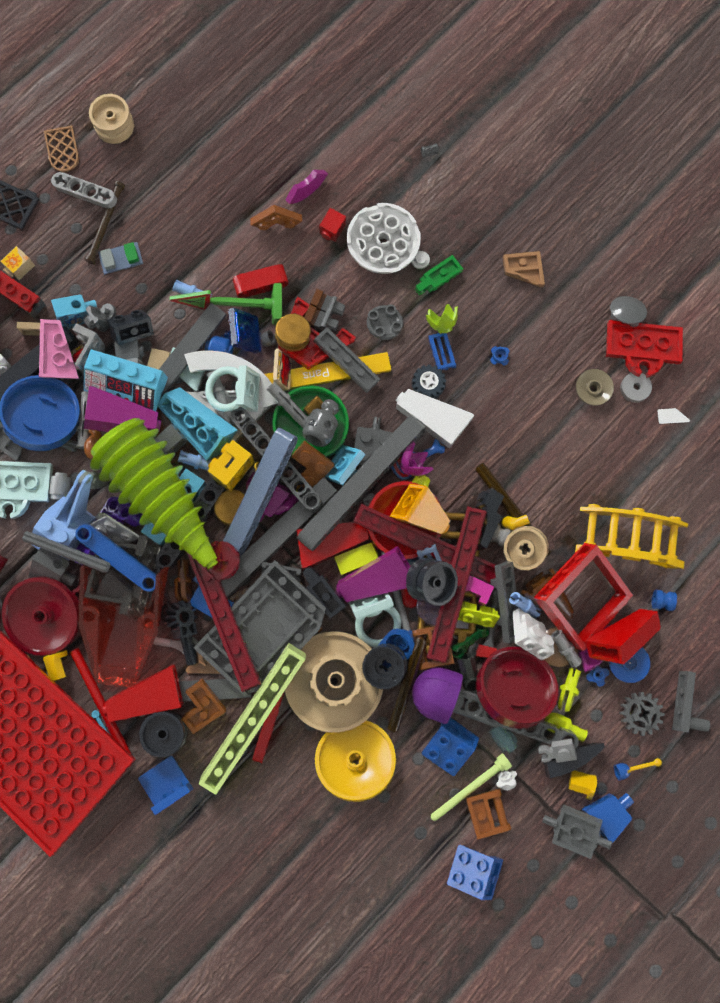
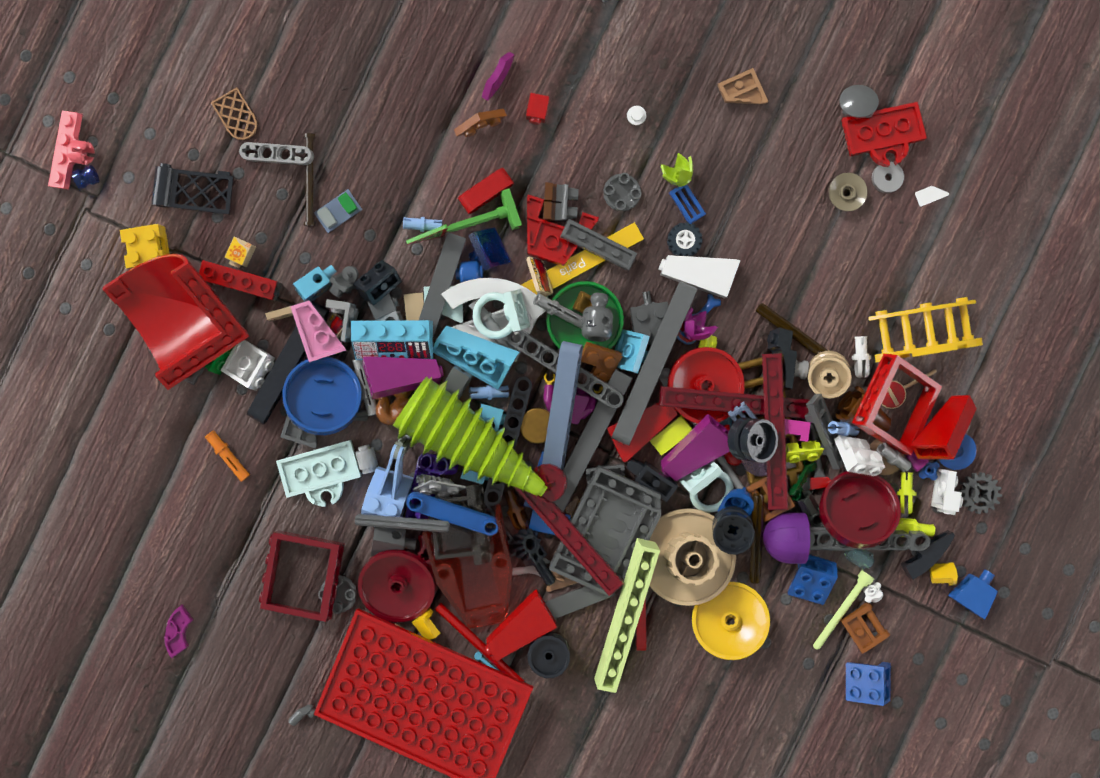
camera: 15 degrees left, 10 degrees up
(111, 118) = (276, 68): tan wheel -> none
(165, 784) = (566, 698): blue bracket -> none
(207, 706) = (578, 616): dark orange plate -> none
(231, 465) = (526, 391): yellow piece -> none
(268, 338) = (513, 247): dark grey hinge -> none
(292, 332) = (537, 235): pearl gold head -> none
(388, 223) = (598, 88): white brick -> none
(421, 509) = (719, 374): light orange slope -> none
(439, 275) = (660, 125): green hinge -> none
(503, 352) = (745, 184): blue plate -> none
(513, 523) = (810, 353): yellow arm -> none
(560, 750) = (917, 553): light grey plate -> none
(563, 541) = (861, 358): none -> white arm
(577, 831) = (951, 618): dark grey plate -> none
(584, 590) = (896, 393): none -> red piece
(606, 706) = (944, 496): none -> white plate
(623, 771) = (977, 550): hinge -> none
(664, 600) = (972, 380): blue wheel -> none
(683, 705) = (1016, 472): dark grey piece -> none

